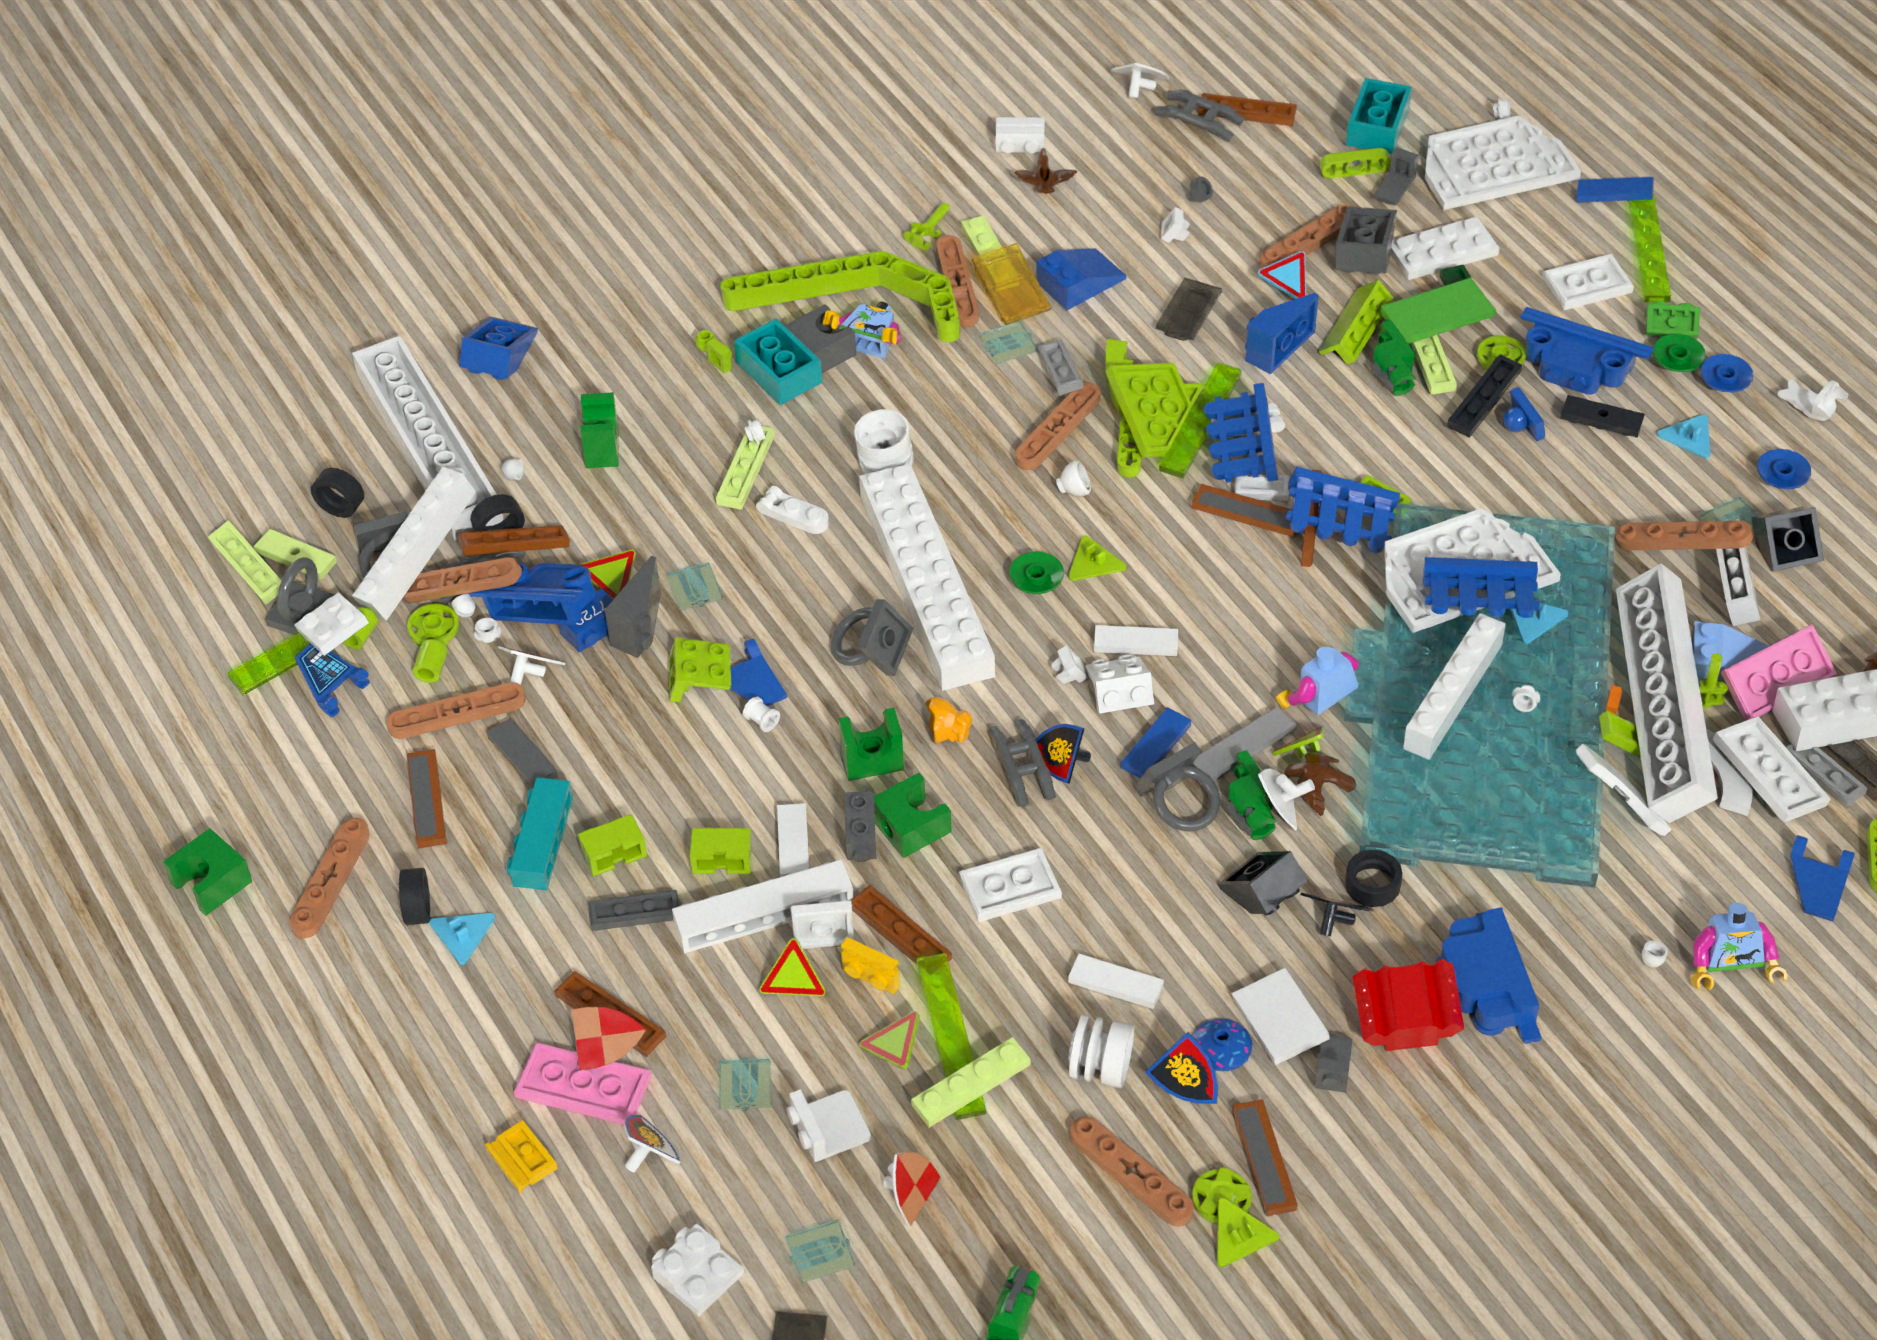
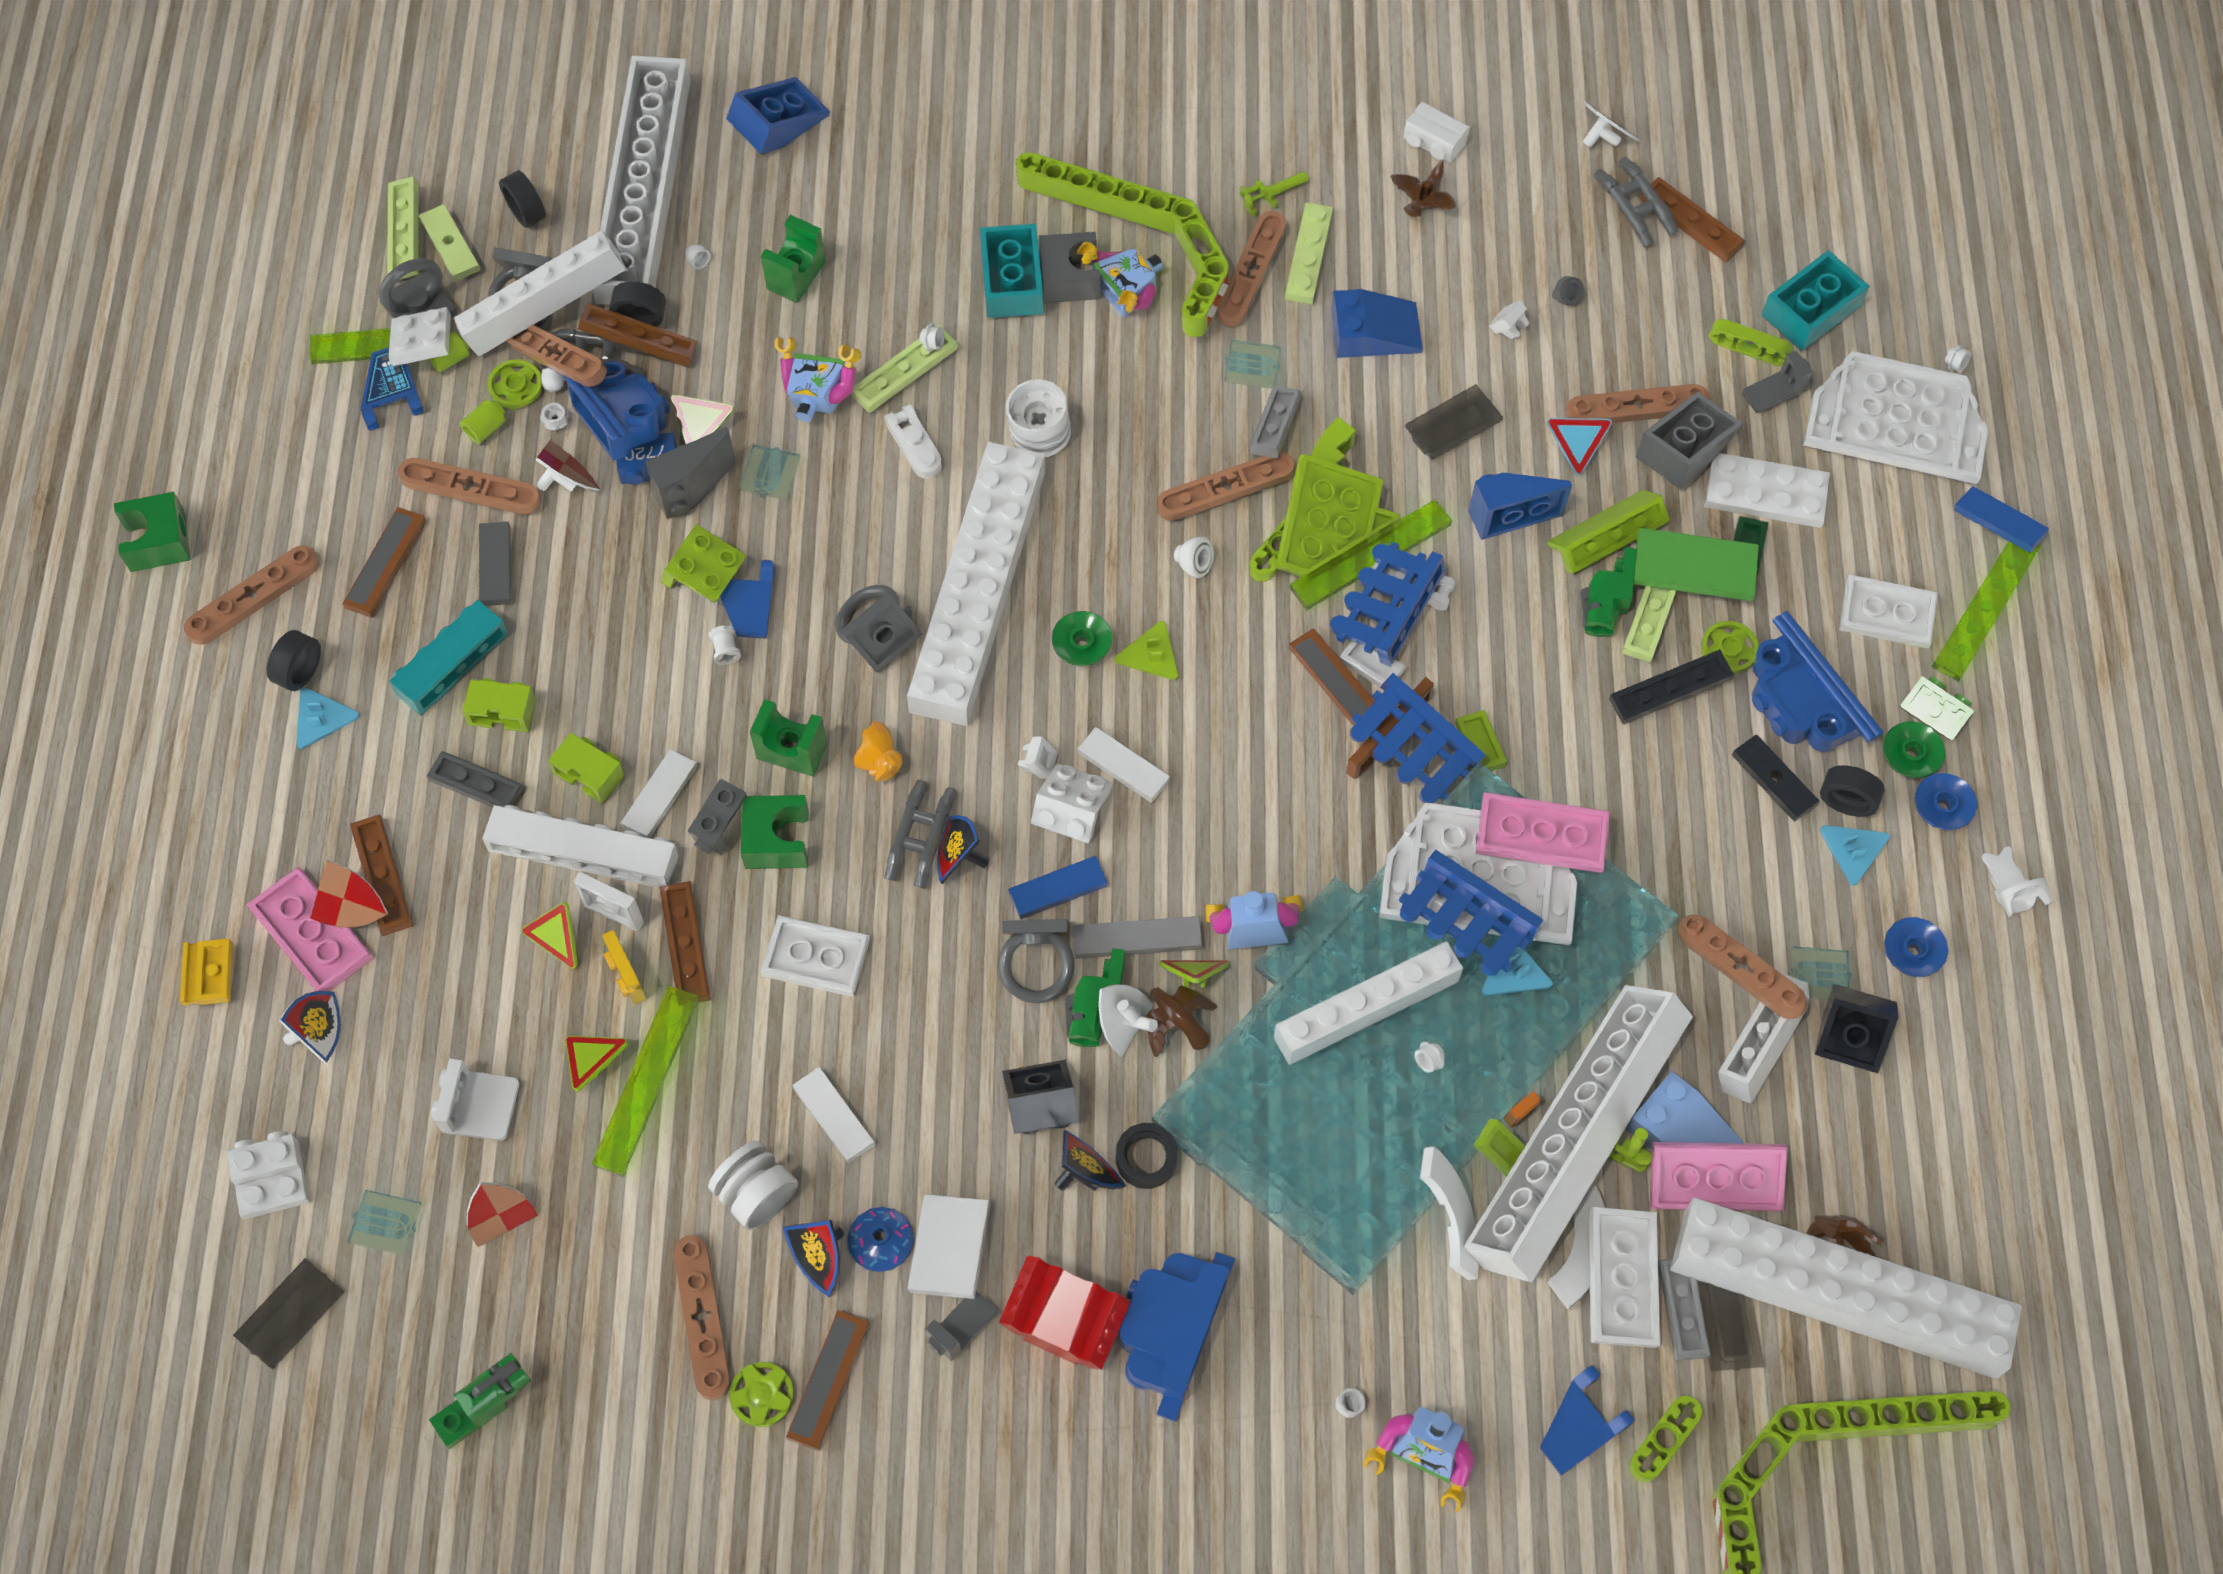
camera: 30 degrees right, 15 degrees up
(686, 503) = (816, 381): none -> torso
(718, 353) = (966, 211): lime plate -> none
(745, 1084) = (442, 1016): clear light blue piece -> none
(970, 1082) = (623, 1140): yellowish green plate -> none
(1010, 284) = (1296, 301): clear yellow piece -> none
(1239, 1233) = (746, 1443): lime piece -> none
(1483, 516) = (1543, 832): none -> bright pink tile
(1523, 416) = (1692, 733): blue tile -> none
(1667, 406) = (1852, 791): none -> black tyre

